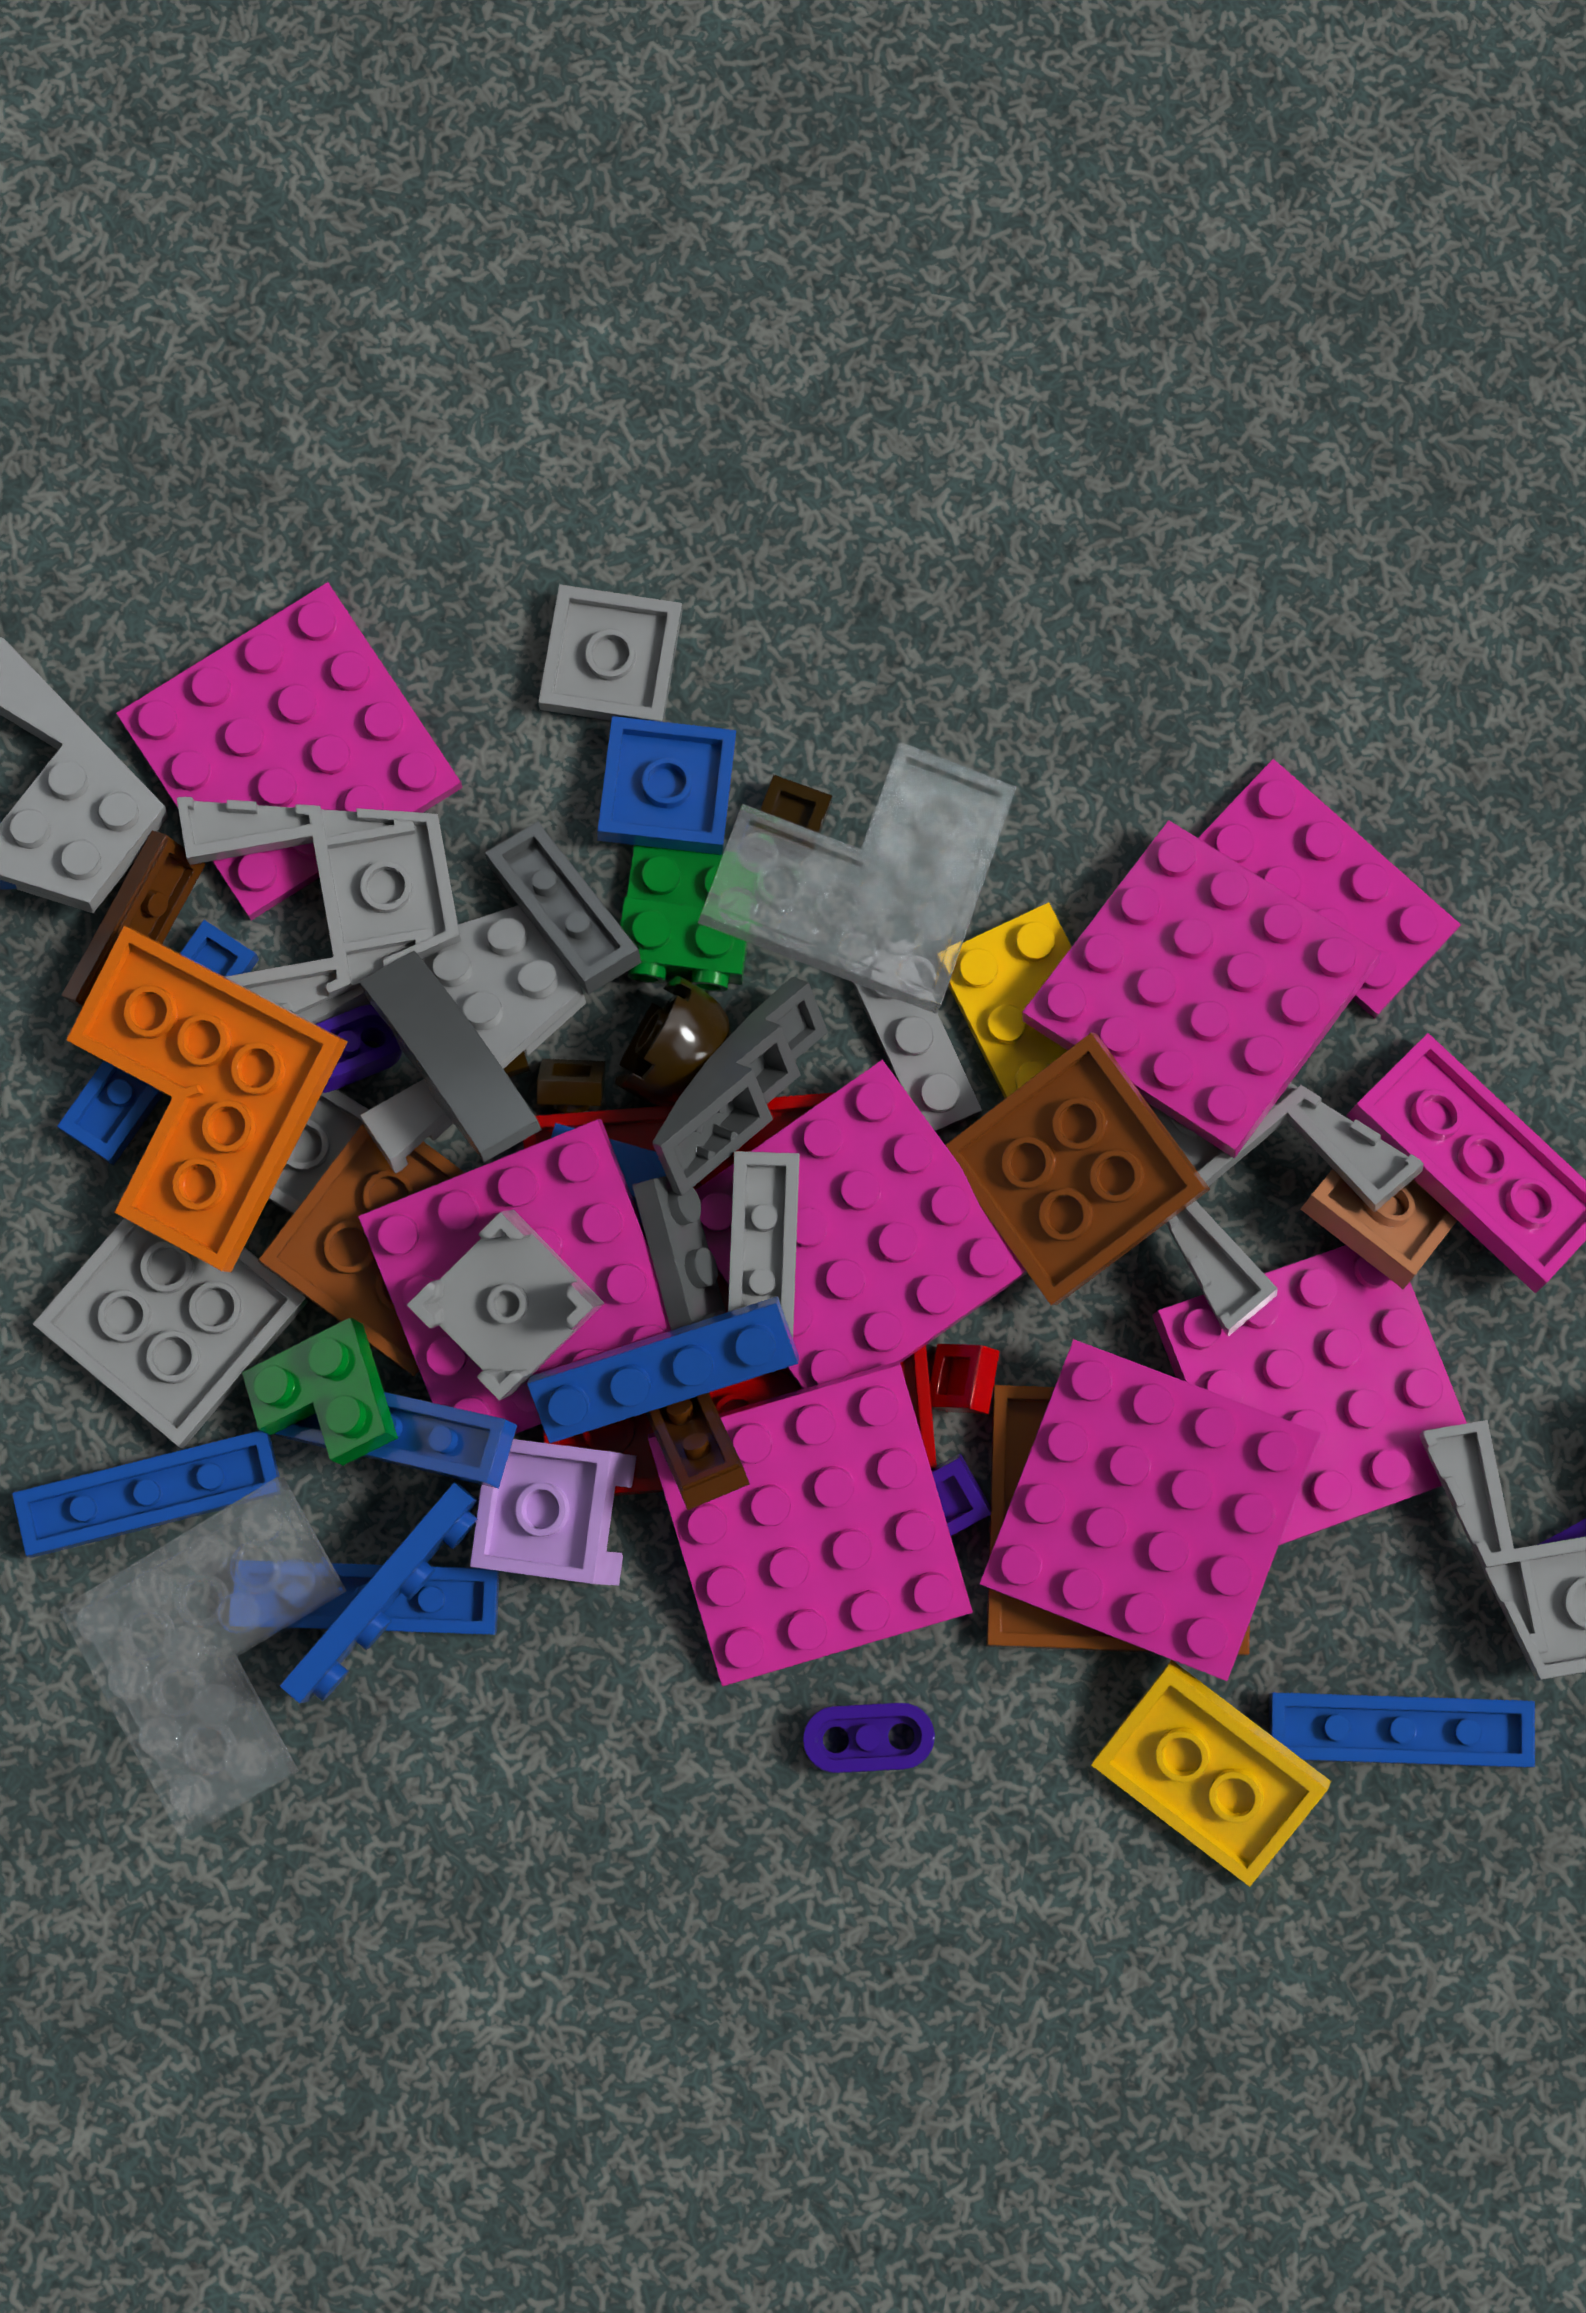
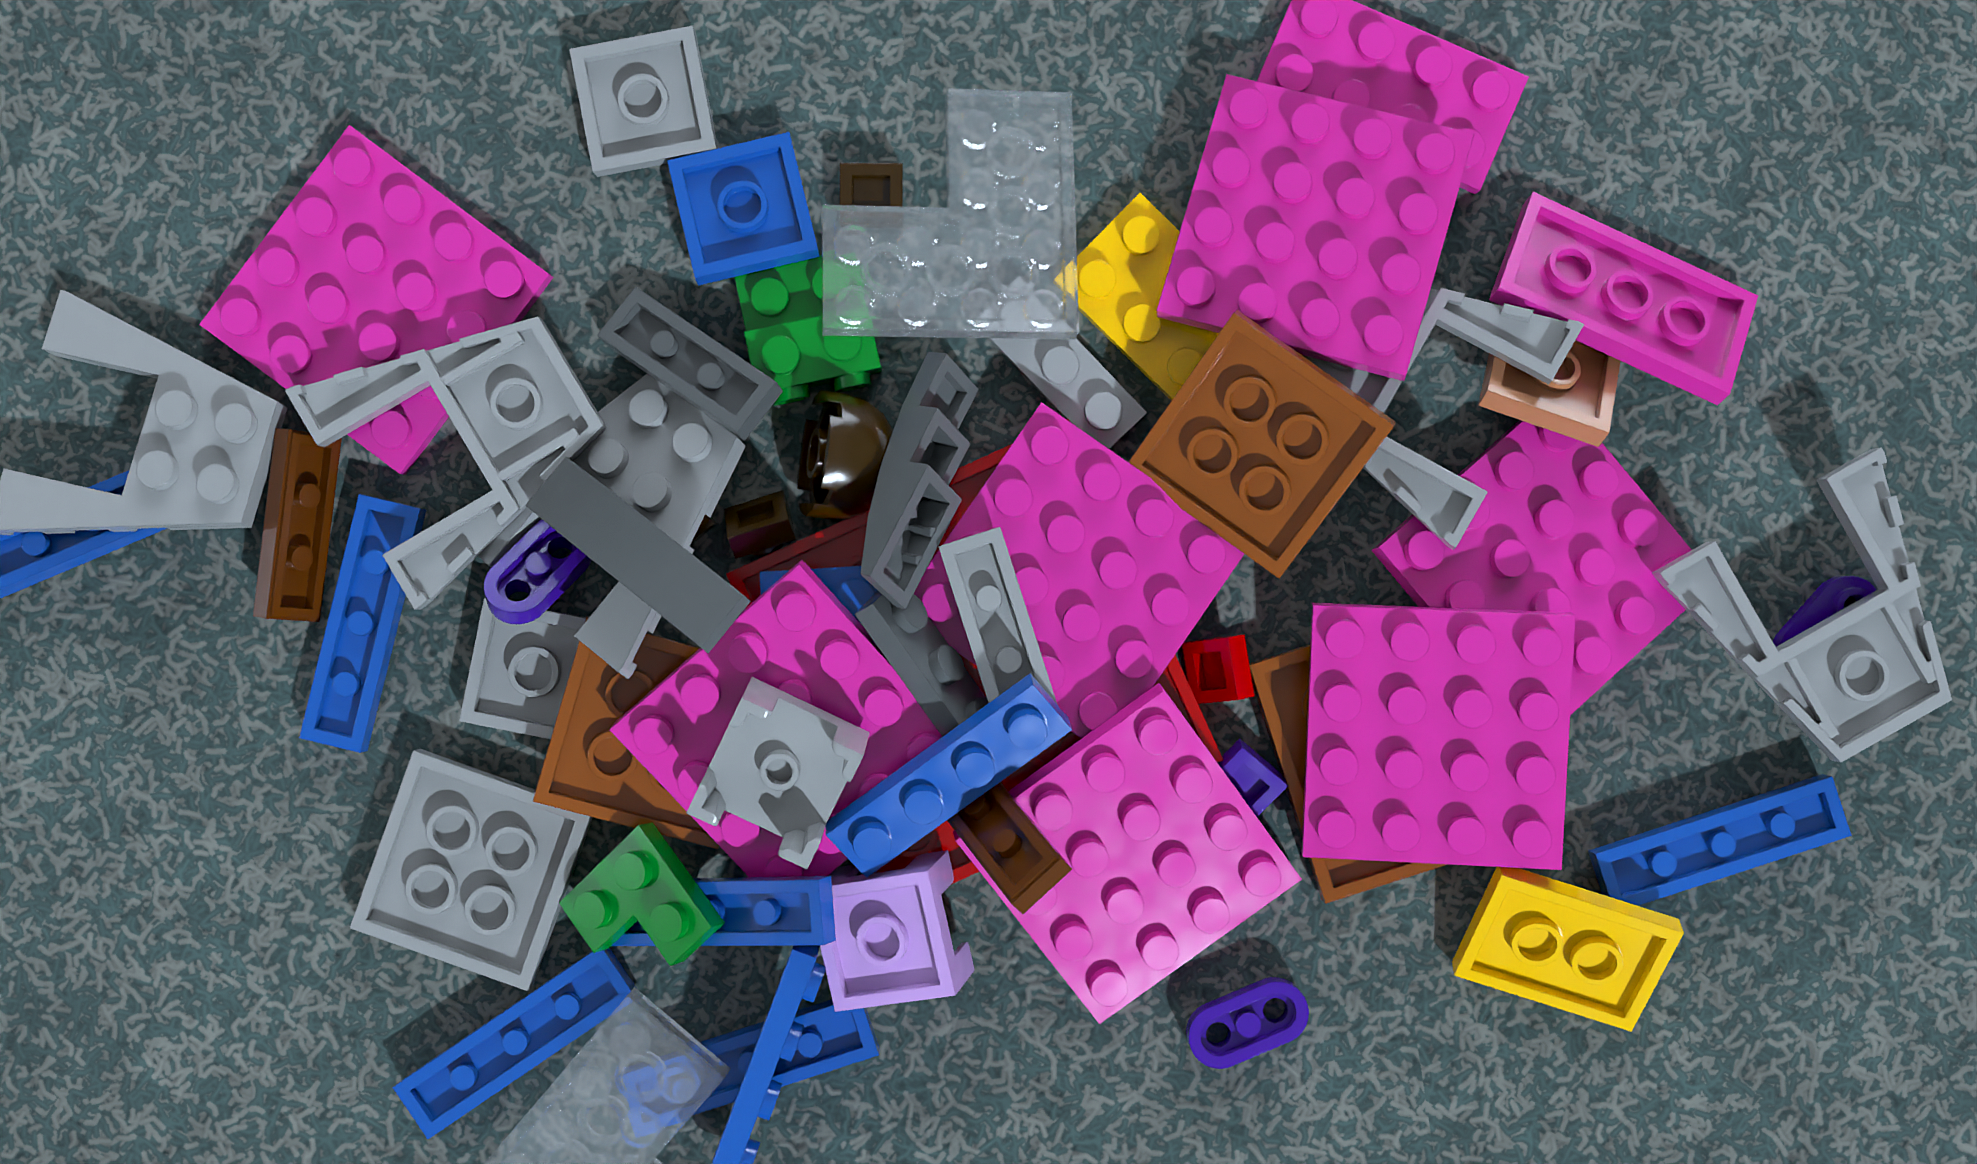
camera: 25 degrees left, 10 degrees up
(237, 1082) = (447, 641): orange plate -> none

